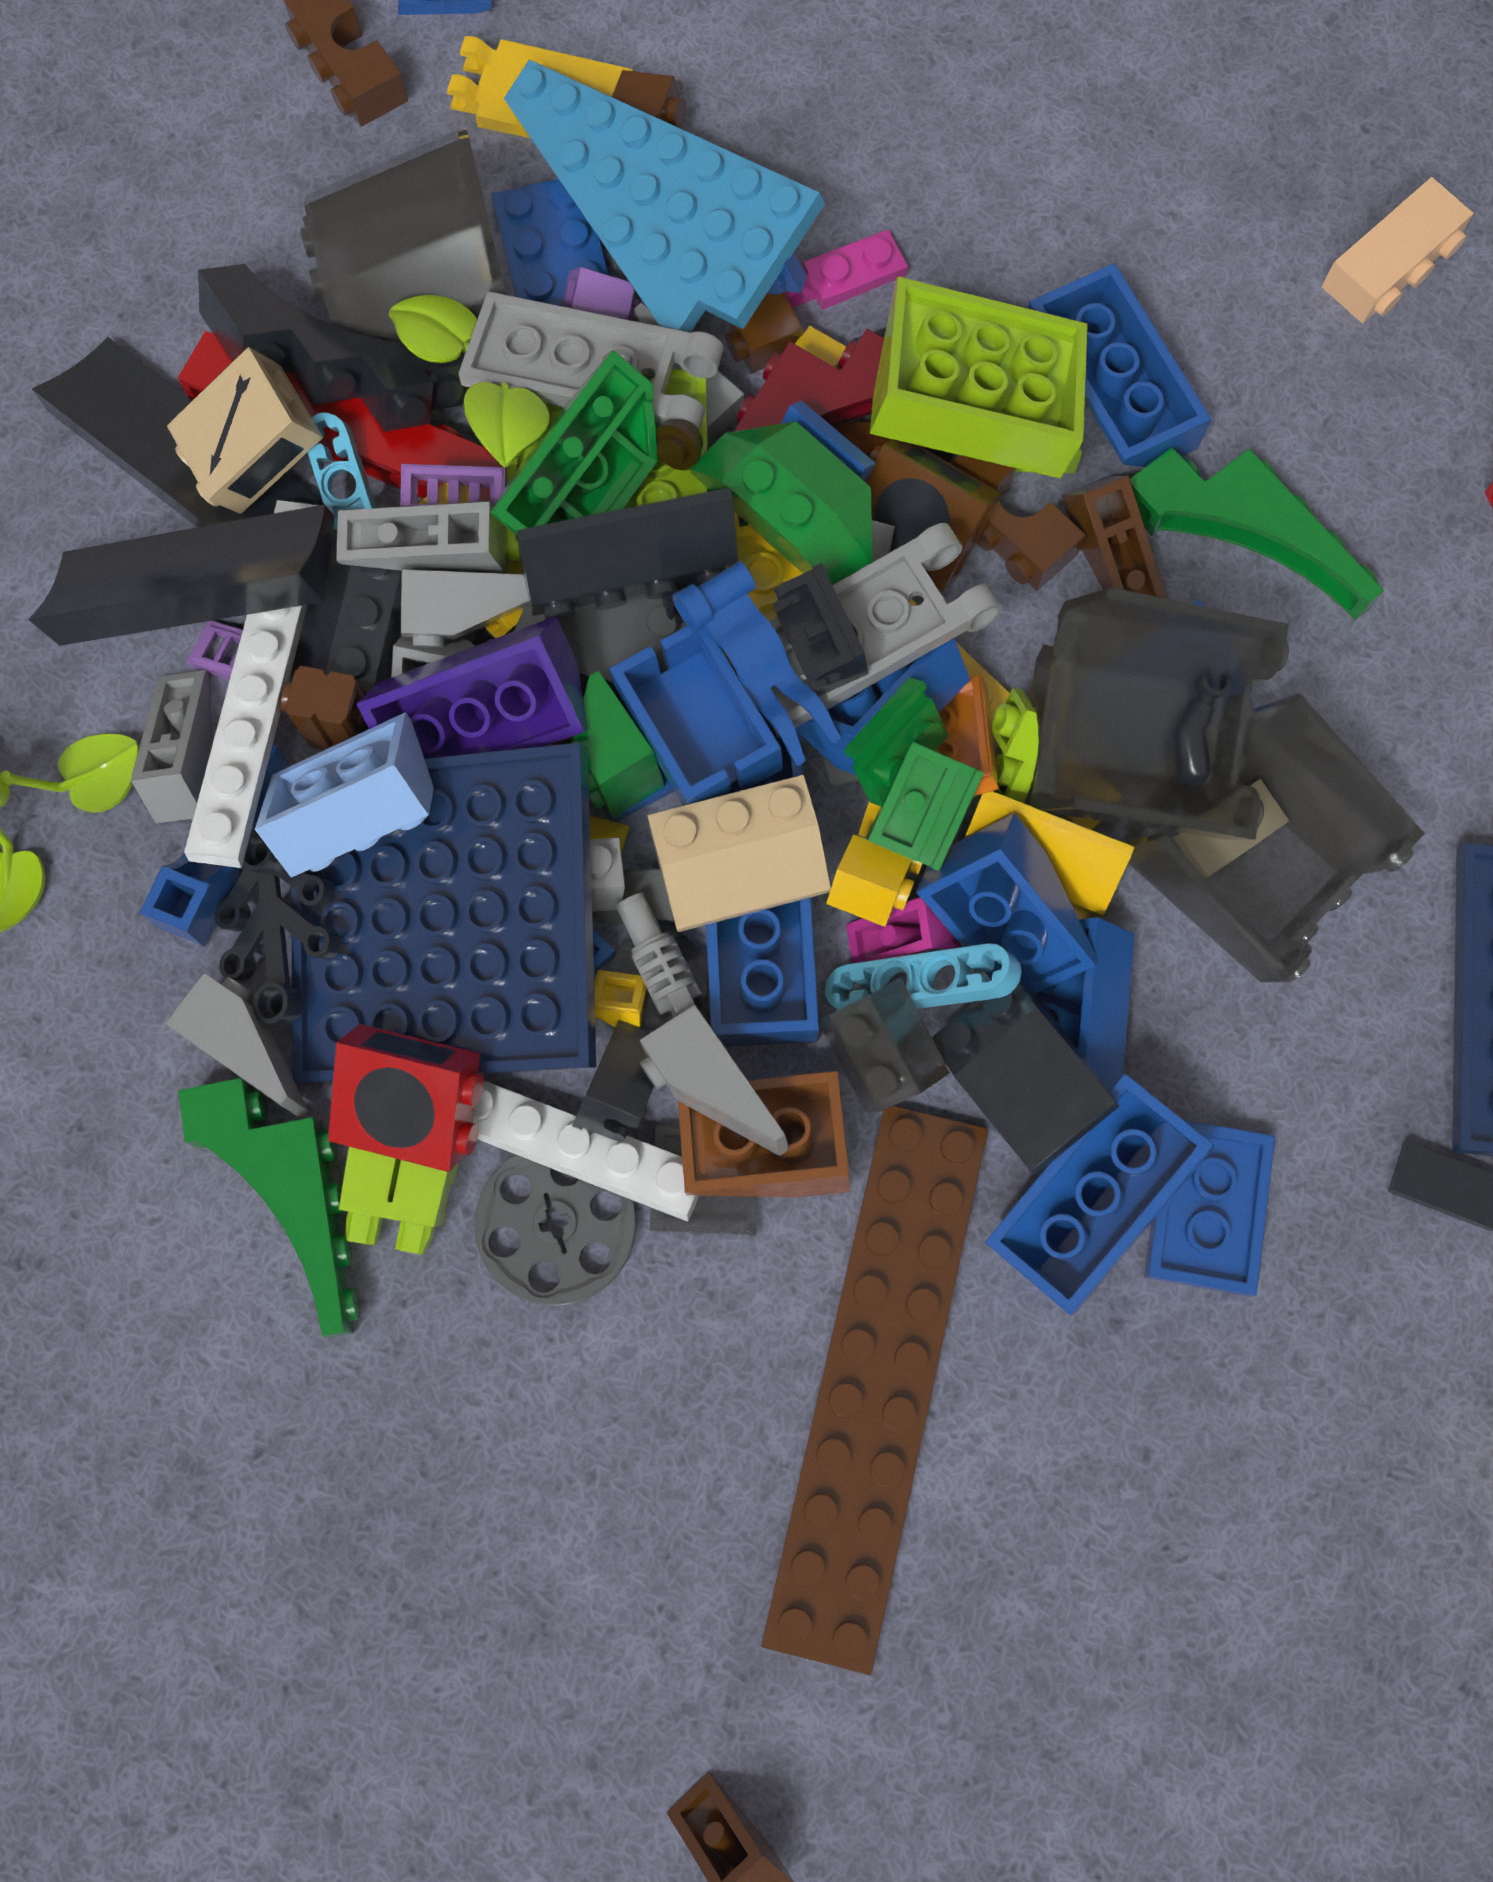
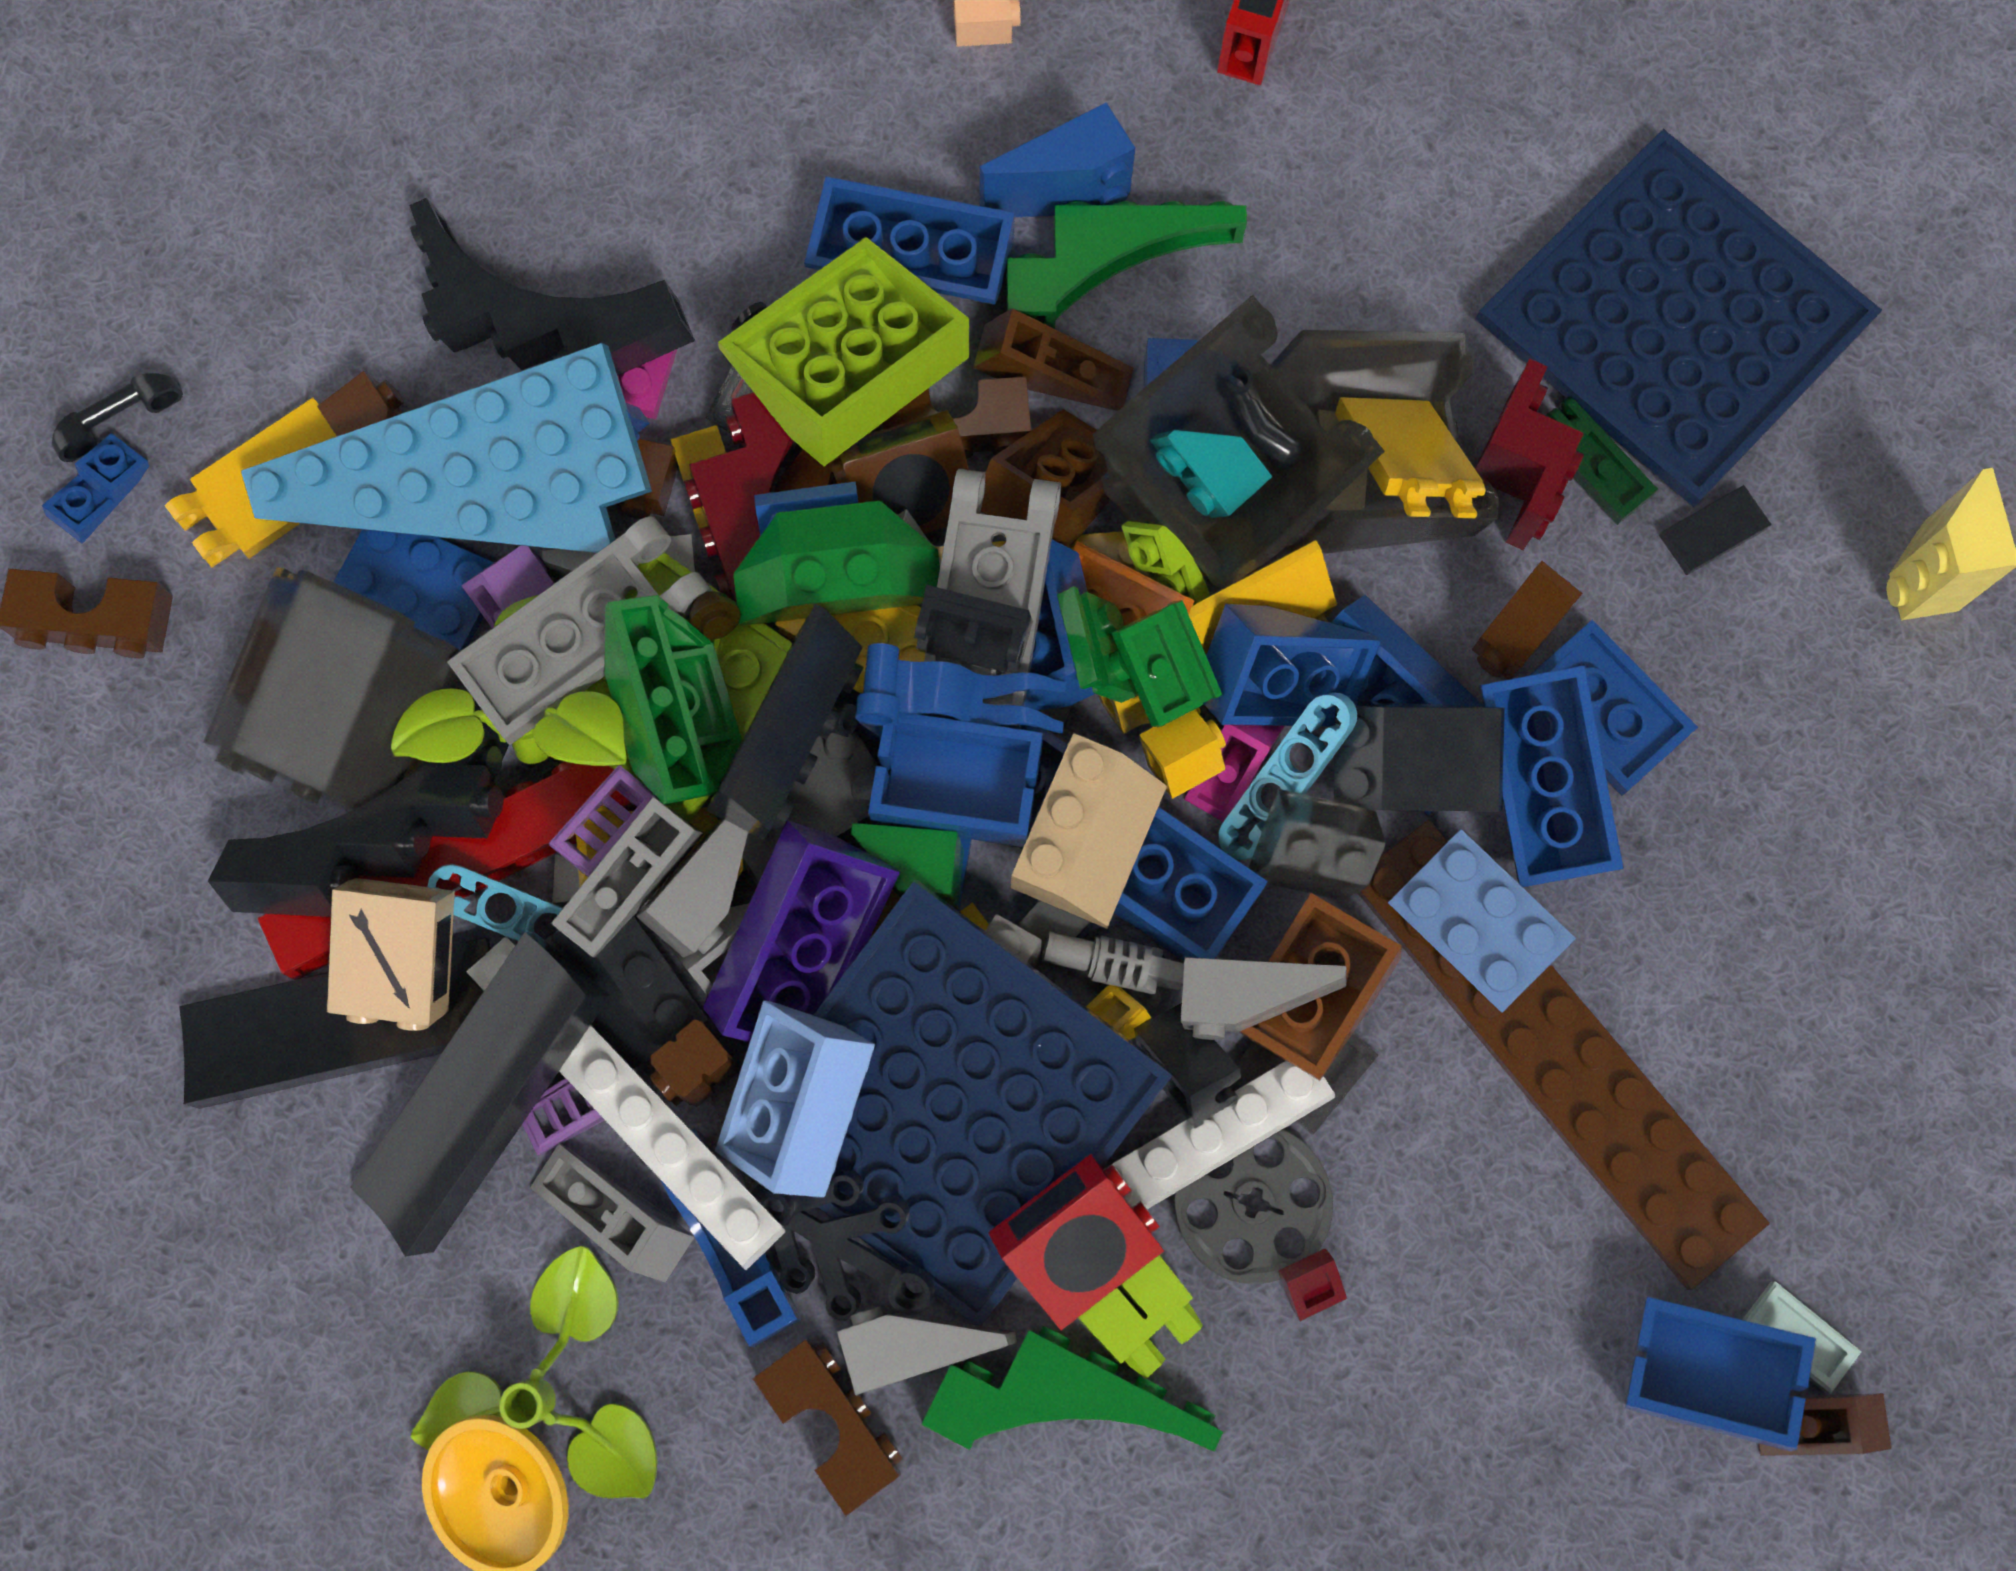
camera: 55 degrees left, 0 degrees up
(127, 1067) = (862, 1461): none -> reddish brown arch
(523, 1319) = (1313, 1284): none -> dark red tile
(696, 1720) = (1720, 1374): none -> blue piece
(793, 116) = (532, 326): none -> black arch
(794, 1776) = (1832, 1351): none -> light aqua tile
(930, 1231) = (1481, 920): none -> medium blue plate
(1027, 620) = (1057, 452): none -> reddish brown slope
(1126, 721) = (1213, 467): none -> teal slope
(1216, 1076) = (1525, 622): none -> reddish brown slope
(1282, 873) = (1418, 454): none -> yellow tile
(1285, 424) = (1076, 161): none -> blue slope
(1369, 973) = (1530, 457): none -> dark red bracket
(1419, 1038) = (1605, 469): none -> dark green hinge

